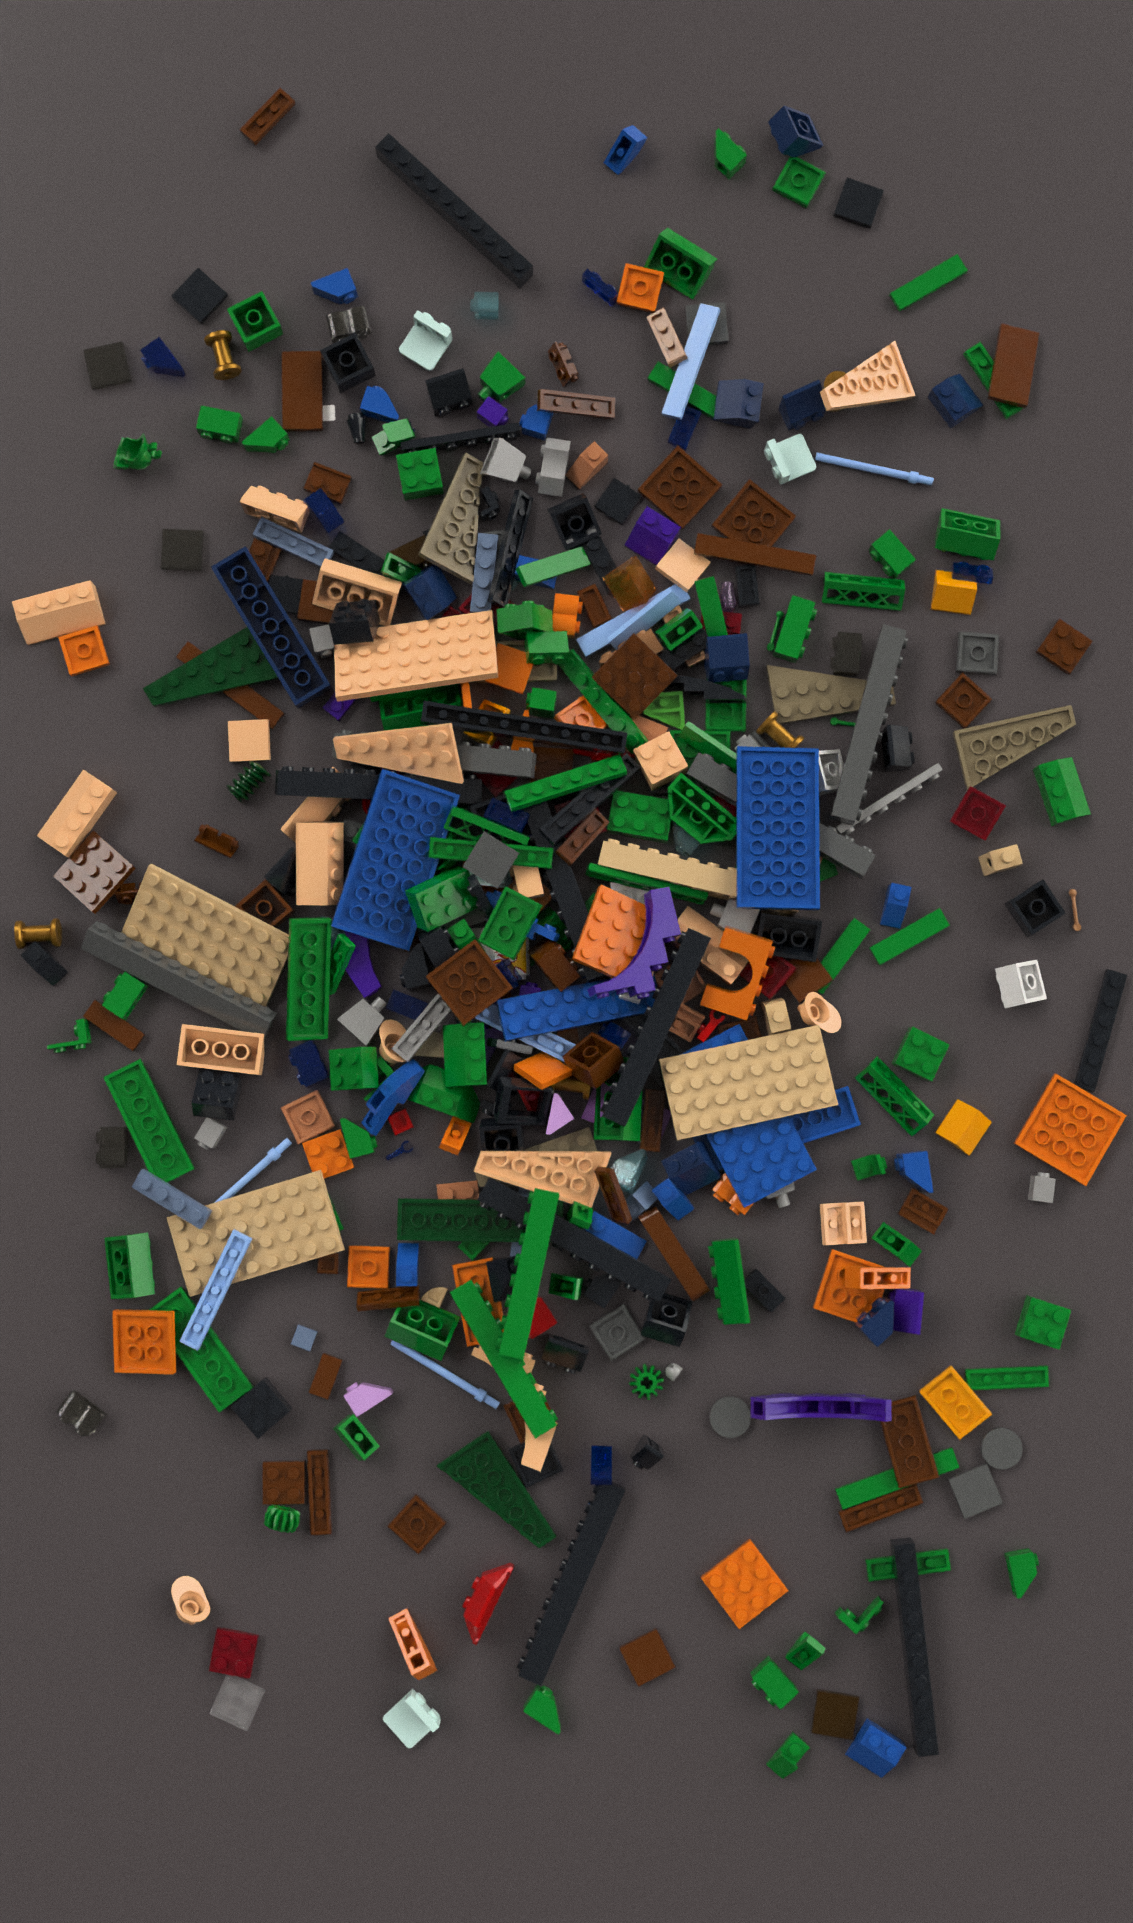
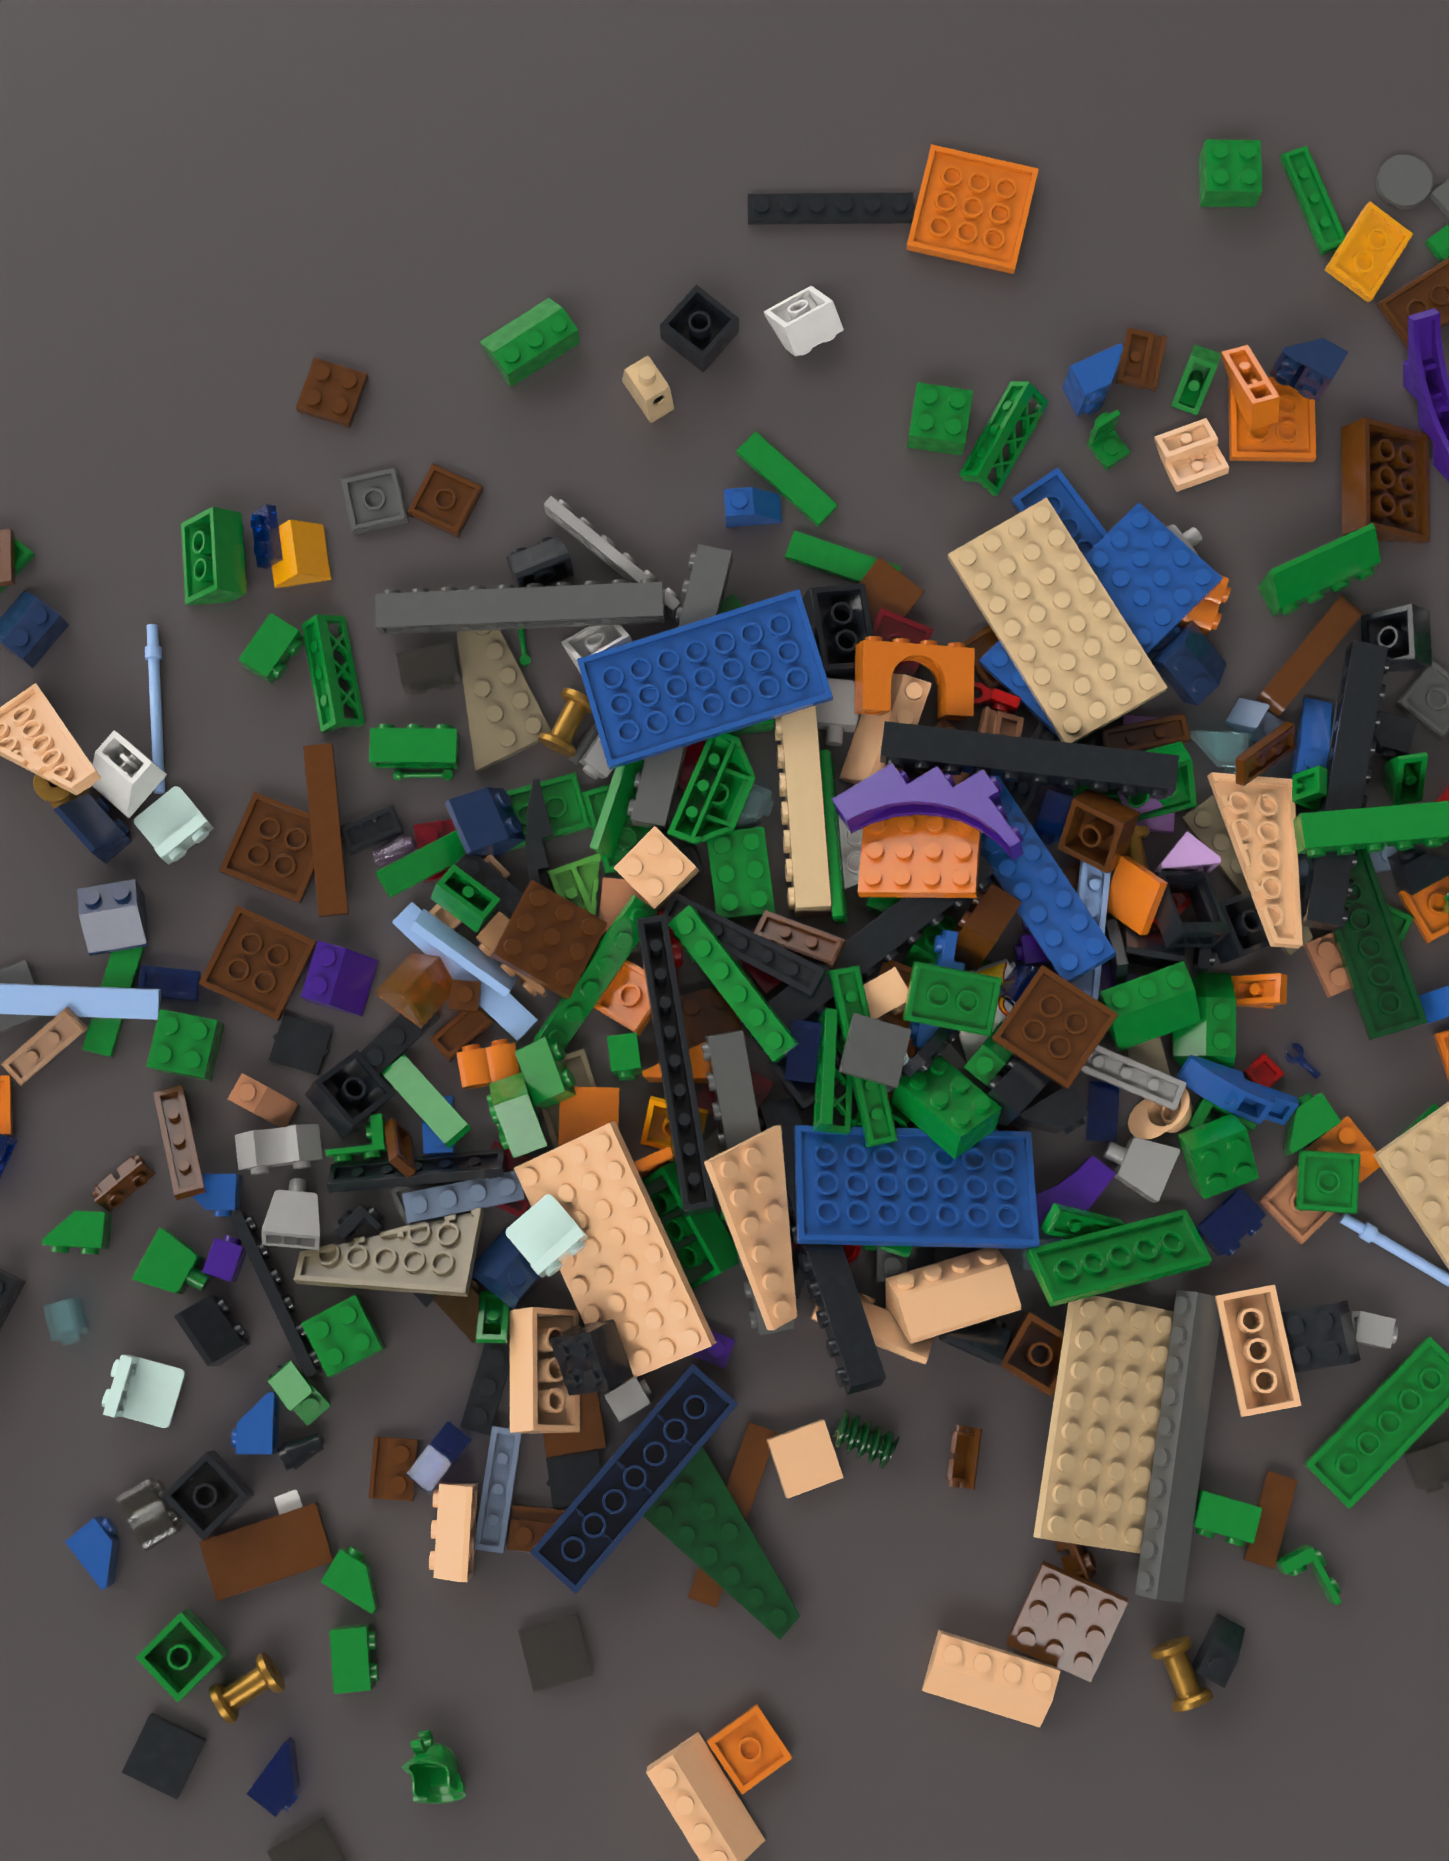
camera: 105 degrees left, 5 degrees down
(314, 1136) = (1327, 1181): none -> green tile
(439, 614) = (546, 1236): none -> light aqua bracket
(528, 541) = (399, 1147): none -> reddish brown tile
(539, 331) = (81, 1230): none -> green slope
(542, 532) = (375, 1132): none -> green bracket
(616, 613) = (465, 995): none -> reddish brown plate
(639, 426) = (185, 1045): none -> green brick
(673, 1198) = (1237, 680): blue slope -> none
(682, 565) = (369, 926): light nougat tile -> none
(763, 1290) = (1314, 527): black plate -> none
(776, 1016) = (955, 615): tan torso -> none
(781, 1351) = (1385, 481): none -> reddish brown slope
(819, 1012) = (929, 560): light nougat piece -> none
(834, 436) = (125, 774): none -> white slope
(907, 1310) = (1273, 332): dark purple slope -> none
(963, 1126) = (1013, 342): light orange slope -> none
(977, 813) = (594, 437): dark red plate -> none
(997, 744) = (490, 435): dark tan wing -> none
(1041, 1188) = (1060, 221): light grey brick -> none
(1076, 926) = (703, 275): medium nougat hinge -> none

